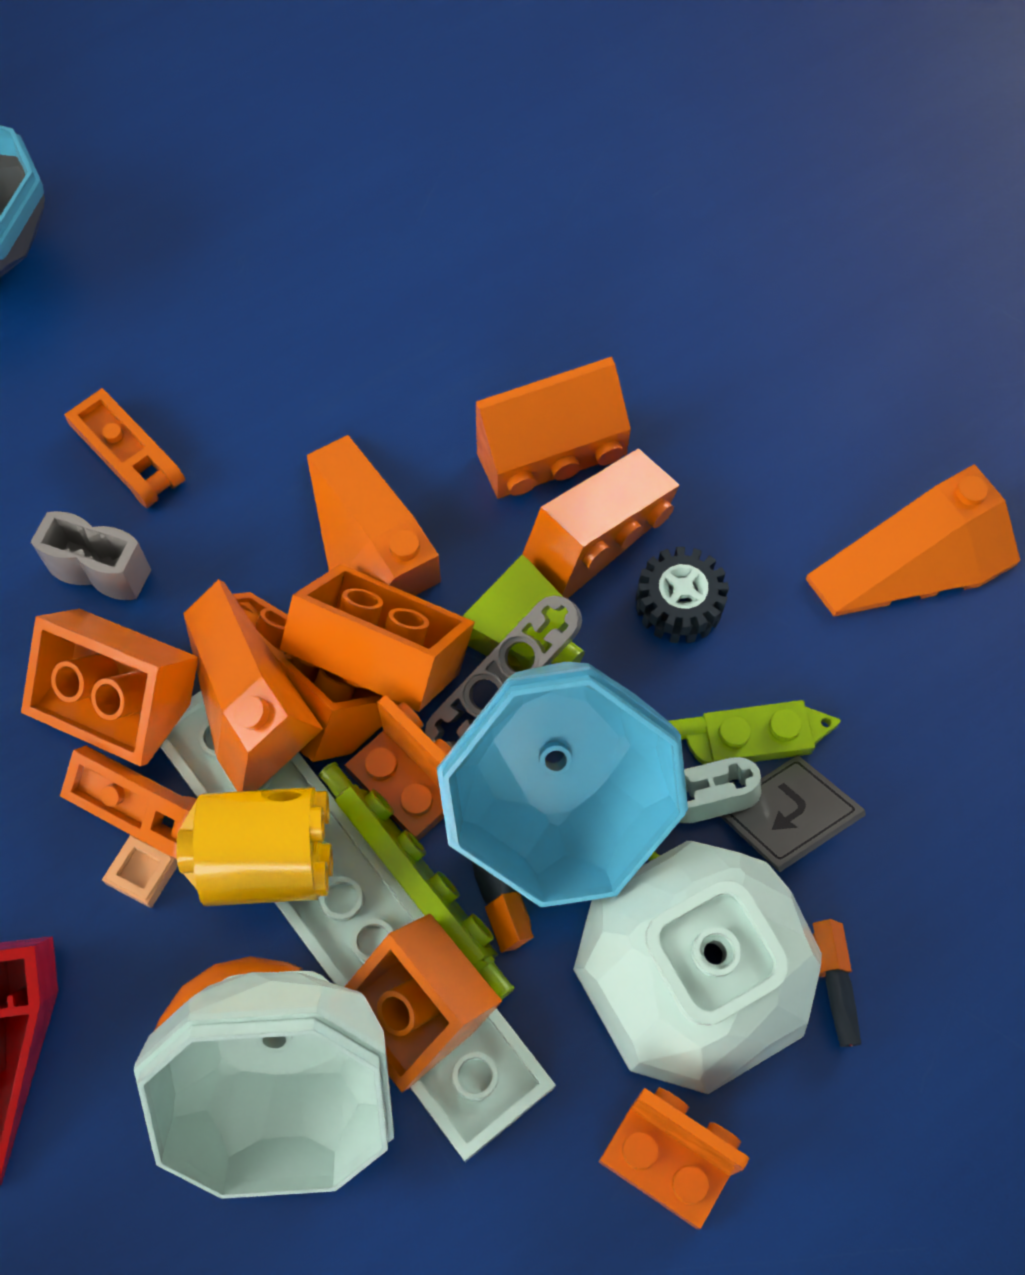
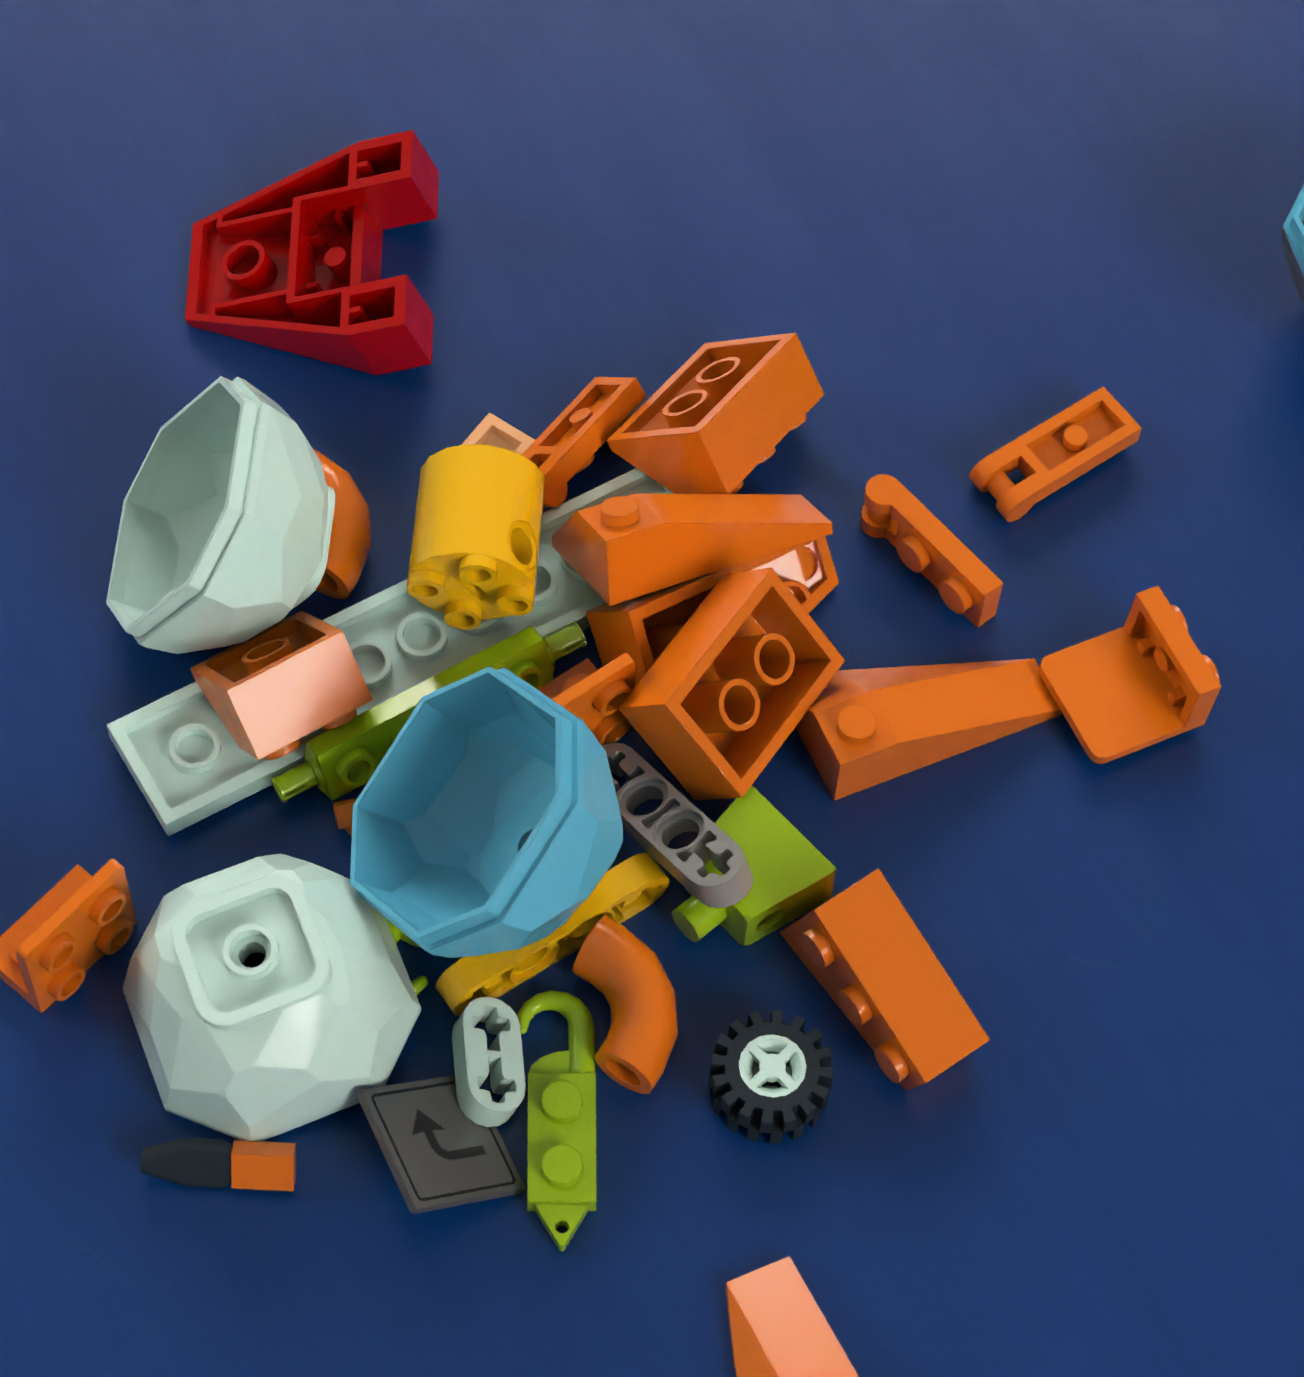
camera: 95 degrees right, 5 degrees down
(91, 555) = (889, 404): light grey brick -> none
(221, 524) = (930, 548): none -> orange plate
(325, 383) = (1133, 681): none -> orange bracket
(552, 428) = (1029, 939): orange slope -> none
(665, 682) = (640, 1004): none -> orange cylinder

